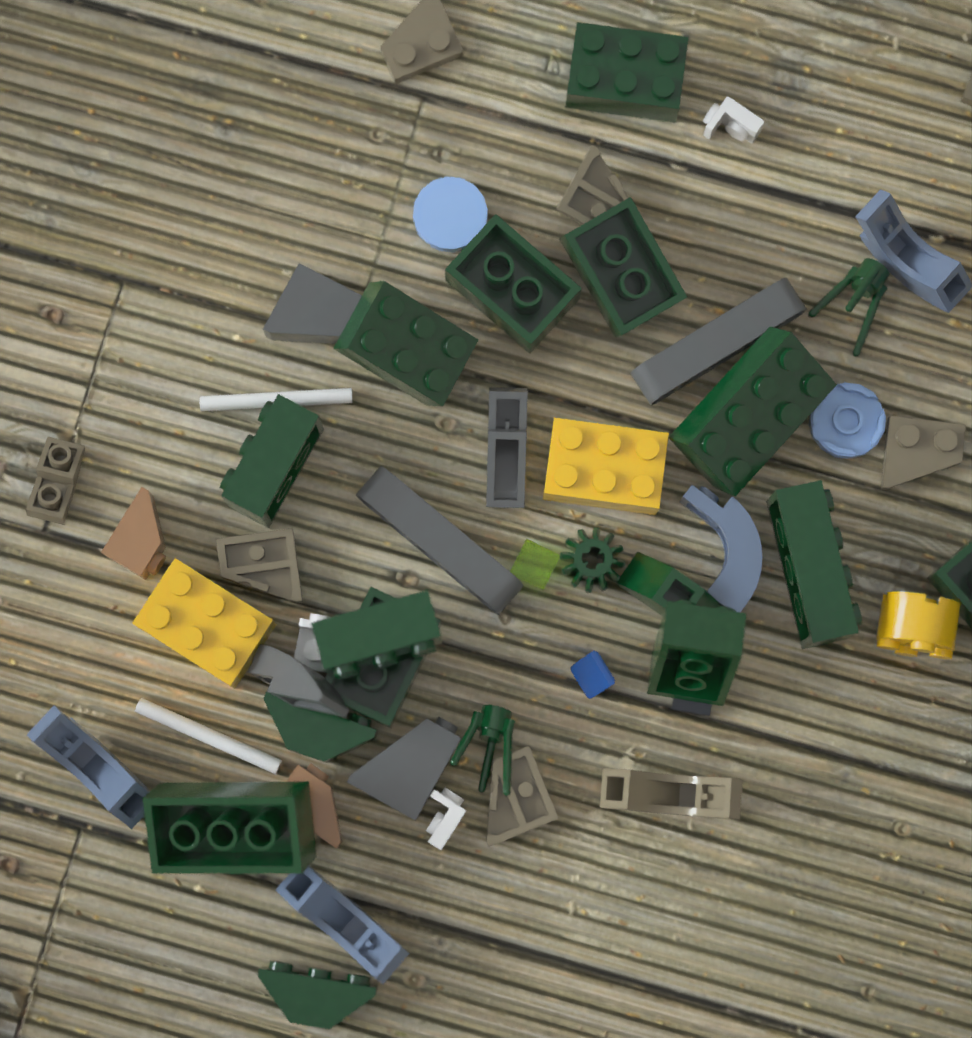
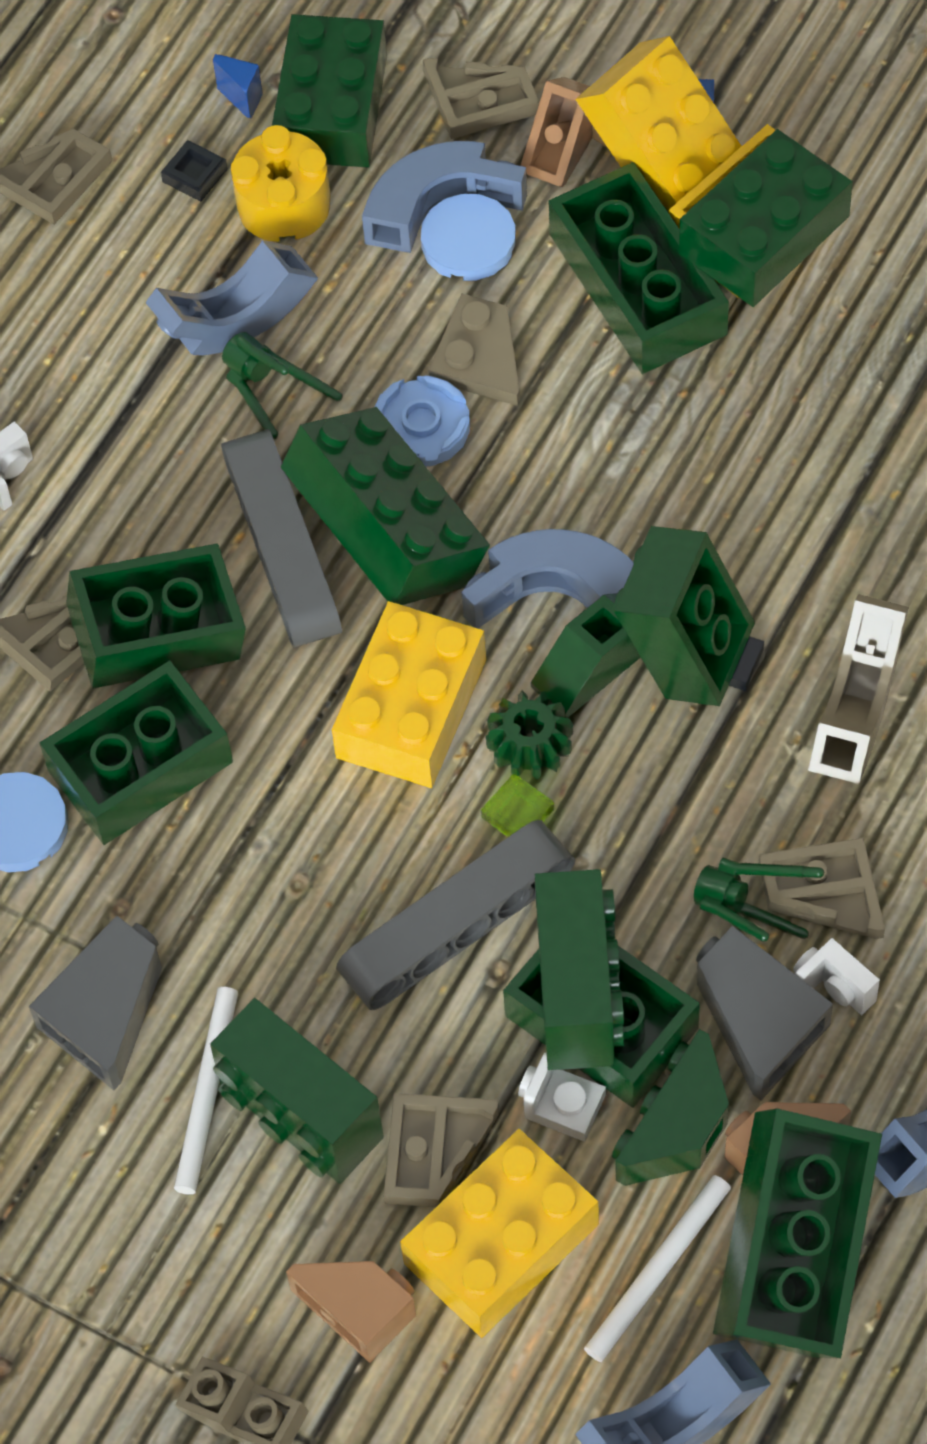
camera: 70 degrees left, 20 degrees down
(296, 682) = (613, 1106): dark grey slope -> none
(406, 343) = (181, 889): dark green brick -> none
(506, 447) = (351, 808): dark grey slope -> none
(592, 674) = (680, 763): blue slope -> none
(813, 564) = (599, 477): dark green brick -> none
(918, 624) = (701, 380): yellow brick -> none

